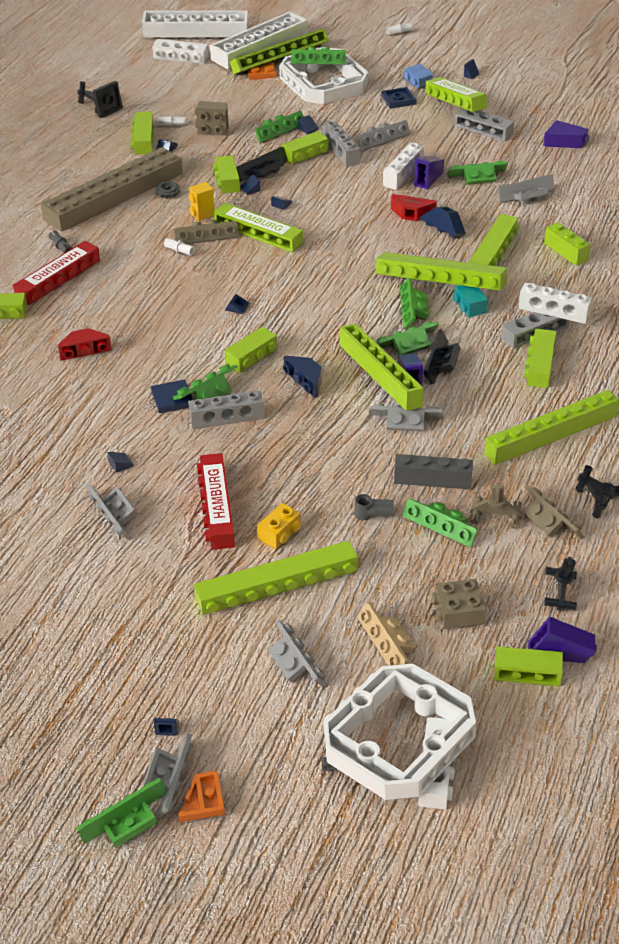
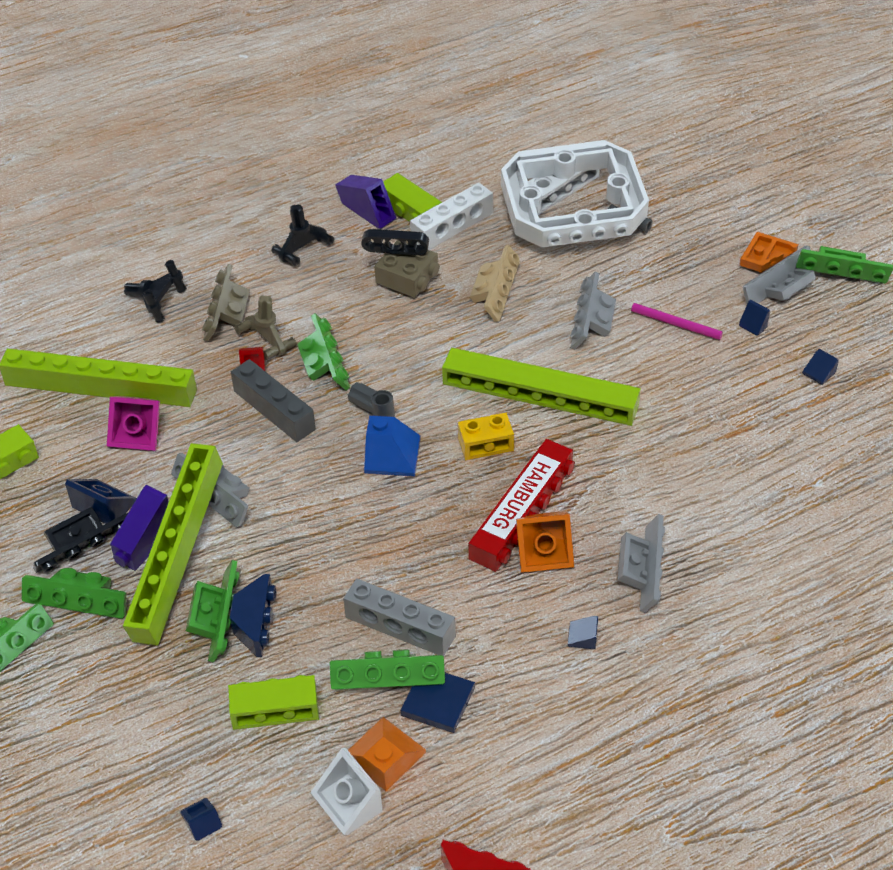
camera: 140 degrees left, 5 degrees up
(86, 714) = (821, 366): none -> dark blue slope
(174, 340) = (347, 793): none -> white slope
(175, 360) = (386, 753): none -> orange slope
(183, 489) = (545, 541): none -> orange slope
(225, 692) = (677, 321): none -> dark pink bar
(332, 366) = (210, 610): none -> bright green bracket
(332, 491) = (390, 447): none -> blue slope
(457, 375) = (105, 499): none -> dark blue slope
(474, 587) = (379, 247): none -> black beam
(480, 489) = (255, 354): none -> red tile
(480, 667) = (454, 214): none -> white brick
(499, 418) = (133, 423): none -> dark pink slope

